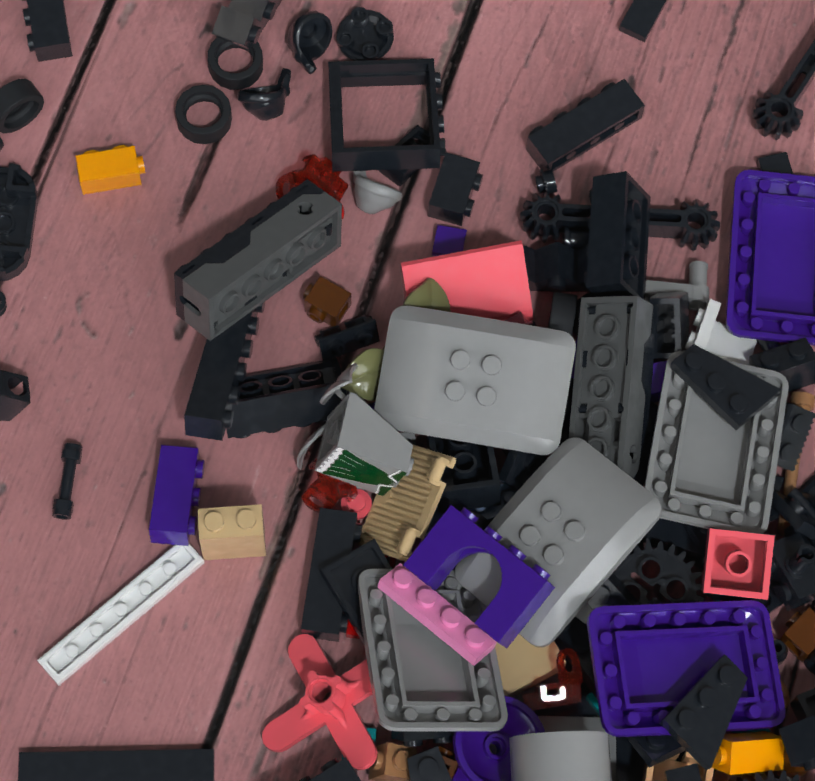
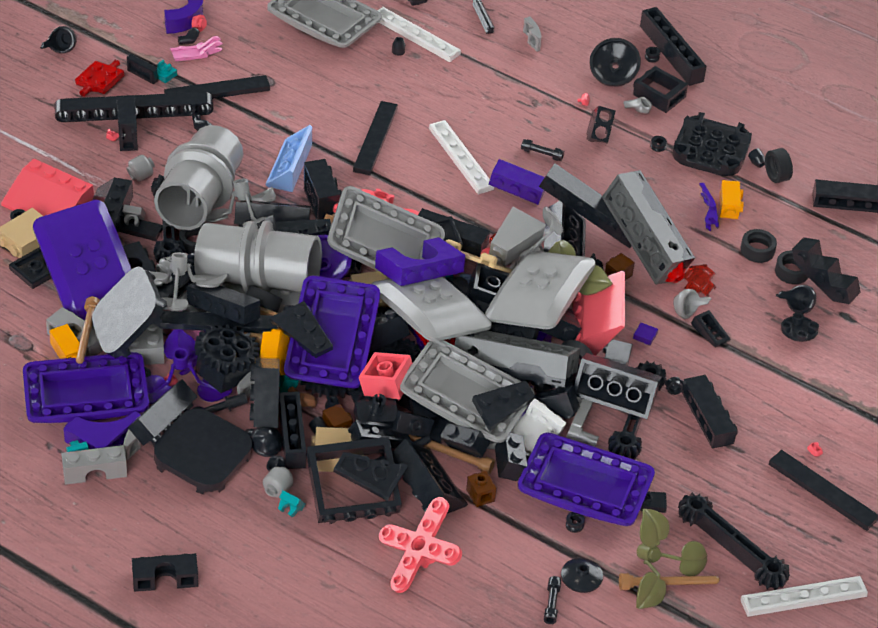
camera: 105 degrees right, 25 degrees down
(151, 190) = (711, 216): none -> dark purple arm
(231, 532) = (486, 191): tan brick -> none
(267, 101) = (762, 271): black hat -> none
(386, 73) = (745, 295): black window -> none
(437, 614) = (406, 245): bright pink plate -> none
(454, 189) = (680, 340): black brick -> none

